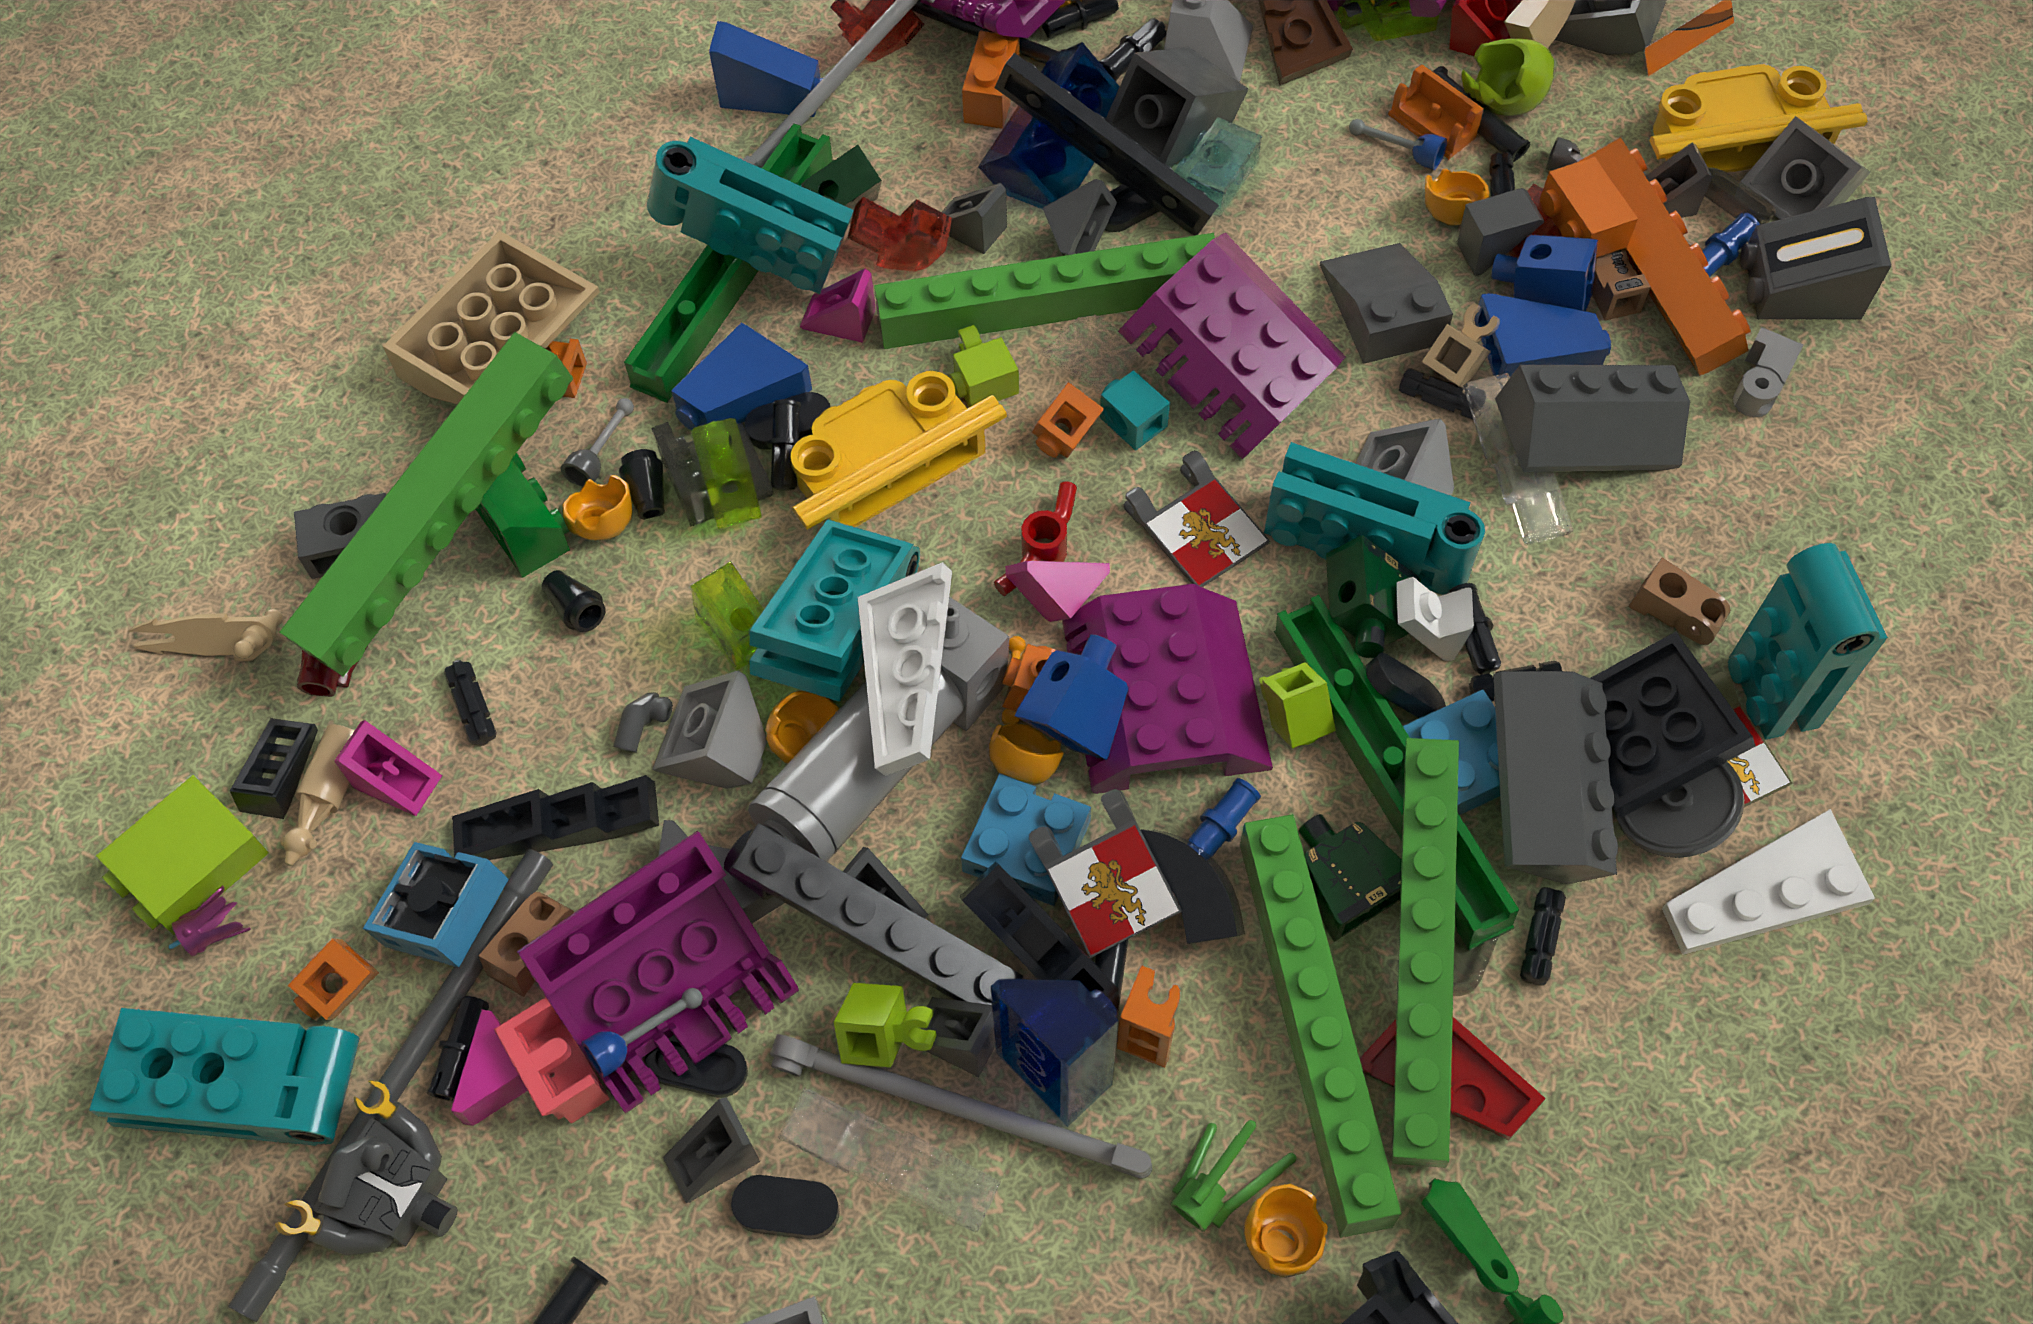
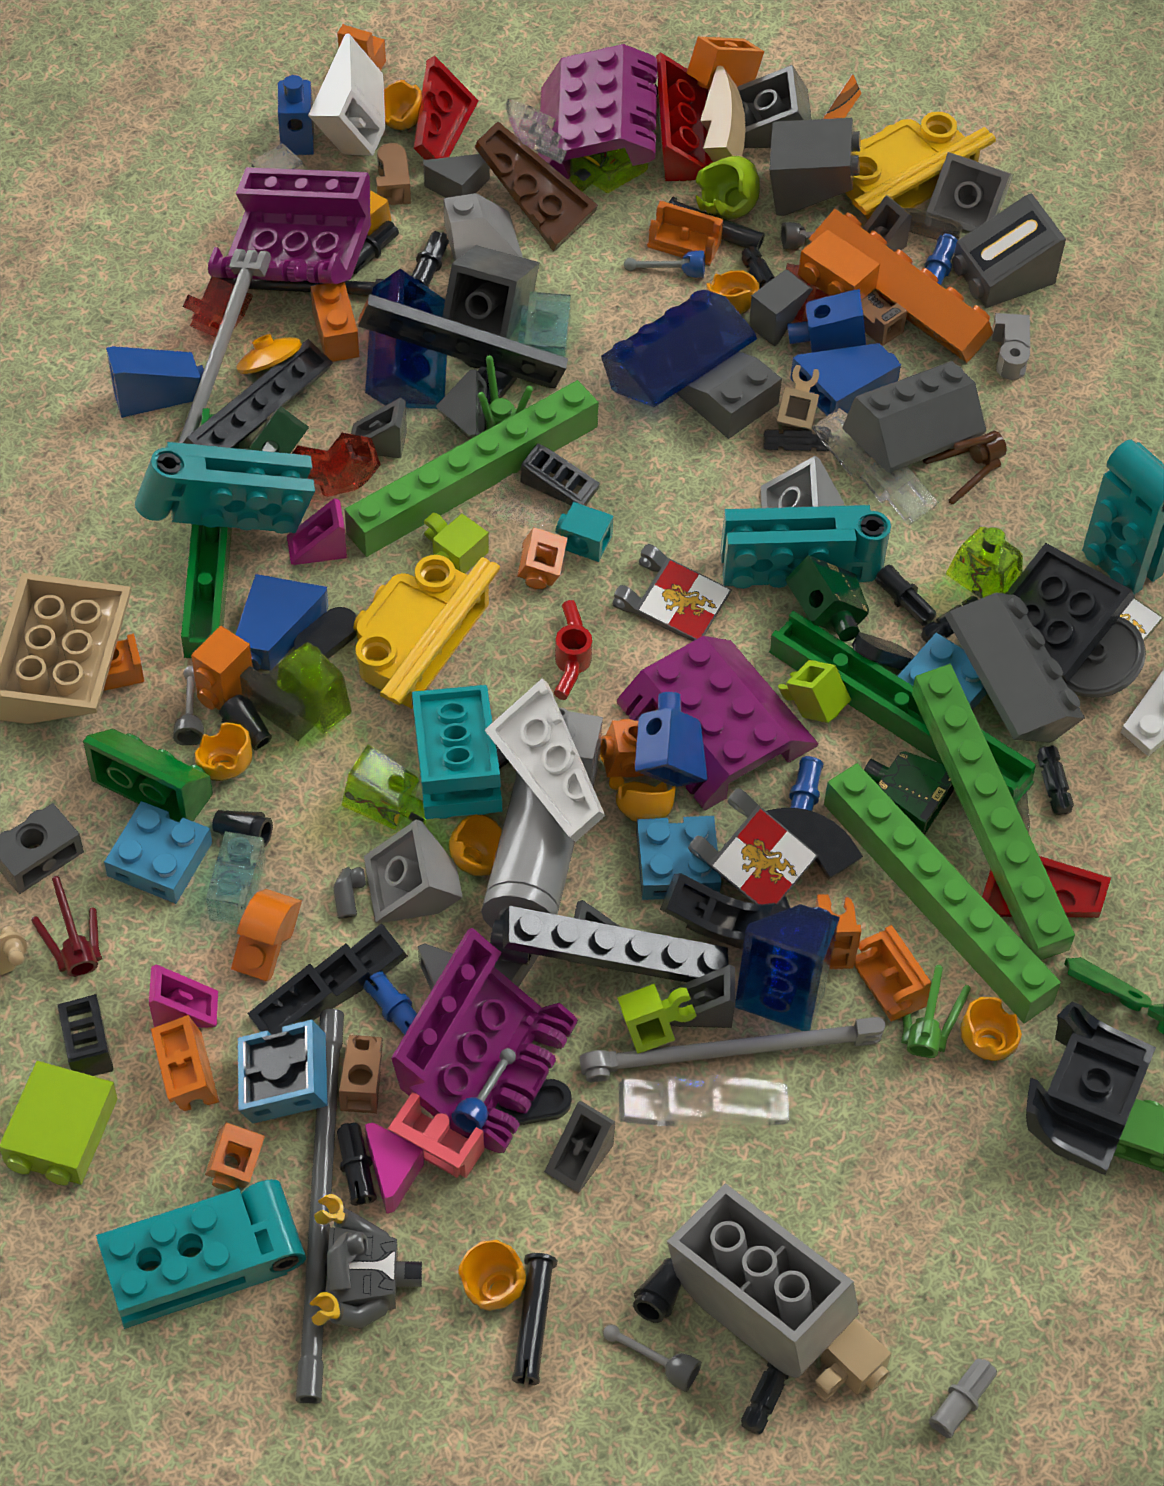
camera: 30 degrees left, 5 degrees down
(199, 927) = (99, 1168): flat silver piece -> none
(318, 793) = (134, 1032): tan wheel -> none
(349, 846) = (184, 1063): none -> orange hinge
(428, 504) = (117, 790): bright green brick -> none
(470, 703) = (207, 929): black axle -> none
(471, 592) = (158, 852): none -> dark azure piece
(510, 1251) = (489, 1264): none -> light orange hair
(514, 724) = (262, 929): none -> orange brick
(525, 656) = (235, 877): none -> clear light blue brick
(608, 861) = (394, 1006): none -> blue pin
(636, 406) = (219, 667): none -> orange brick
(784, 436) = (339, 650): black axle -> none
(785, 1207) = (649, 1164): black tile -> none
(874, 130) = (262, 399): none -> black plate
(900, 87) = (268, 353): none -> light orange dish
(1057, 587) = (604, 677): slope -> none
(1113, 316) = (552, 463): none -> black slope
(1115, 234) = (499, 408): none -> bright green plant
(1200, 1100) = (892, 974): none -> orange hinge
(1237, 339) = (642, 453): magenta slope -> none
(1352, 236) = (677, 348): none -> clear blue slope
(1435, 621) = (885, 596): white slope -> none
(1590, 627) = (986, 563): none -> clear neon green torso
(1621, 75) = (812, 161): none -> dark grey slope
(1664, 486) = (983, 449): none -> reddish brown plant
(1681, 603) = (1035, 524): medium nougat leg -> none

